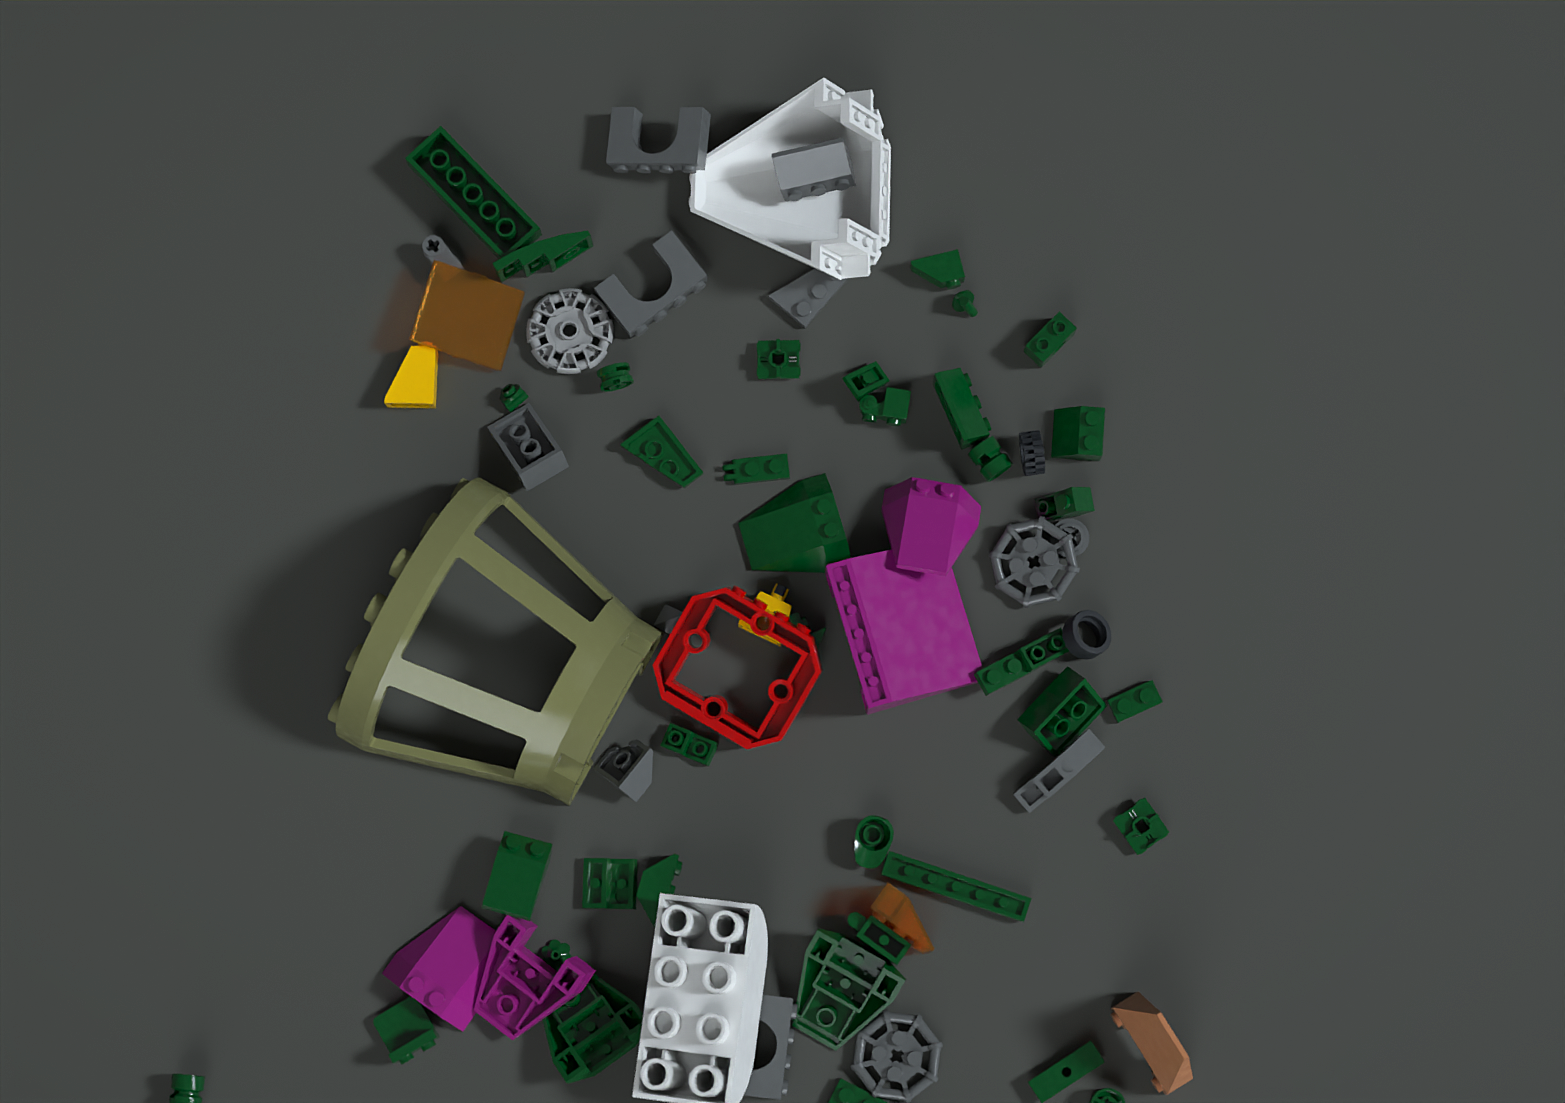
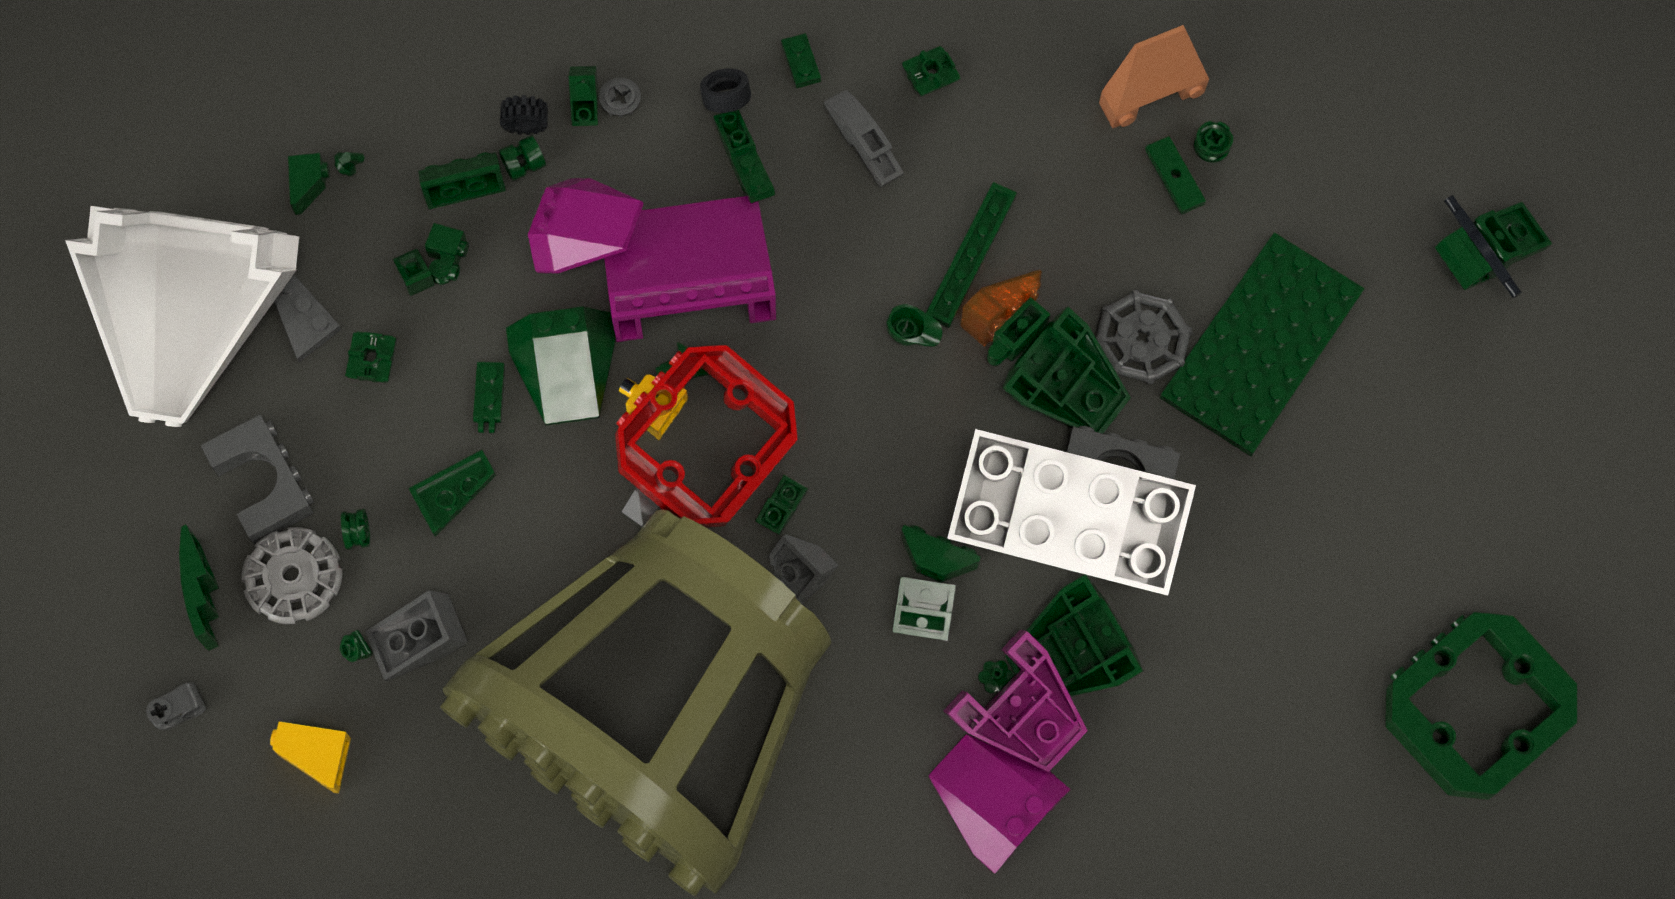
camera: 85 degrees left, 10 degrees down
(406, 1030) = (1064, 850): dark green bracket -> none
(467, 315) = (250, 683): clear orange piece -> none
(472, 194) = (109, 660): dark green brick -> none
(517, 875) = (905, 700): dark green slope -> none
(685, 154) = (103, 482): dark grey arch -> none
(814, 169) = (166, 283): slope -> none
(1030, 548) = (640, 116): dark grey plate -> none
(1050, 339) = (405, 83): dark green brick -> none
(1062, 711) = (801, 127): dark green slope -> none
(1078, 433) = (510, 69): dark green slope -> none

